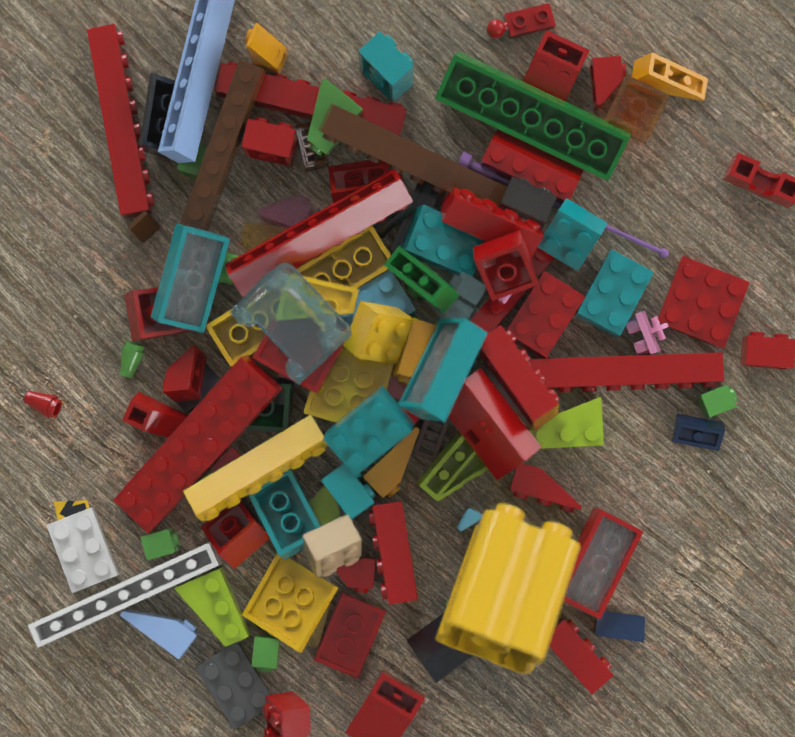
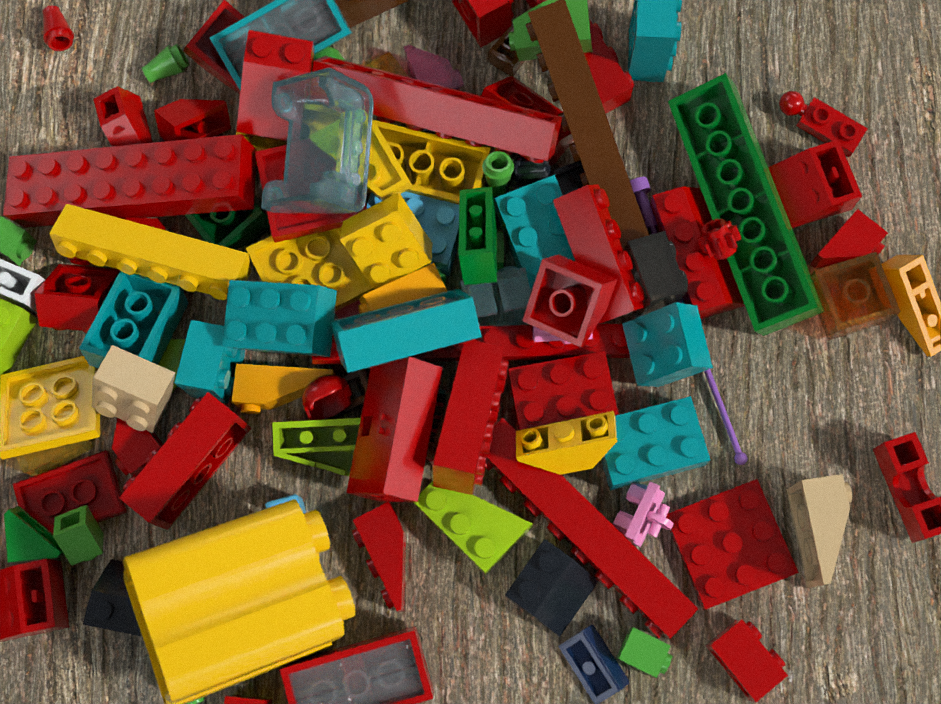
camera: 55 degrees right, 10 degrees down
(212, 307) = (265, 61): none -> red slope
(360, 674) = (28, 538): none -> green slope
(380, 646) = (78, 535): none -> bright green brick
(388, 231) = (498, 171): none -> bright green cone
(428, 443) = (326, 397): none -> red hair
(543, 151) = (719, 239): none -> red gear
(578, 338) = (567, 444): none -> yellow slope
(639, 417) = (551, 587): none -> black slope
(737, 247) = (819, 520): none -> tan slope

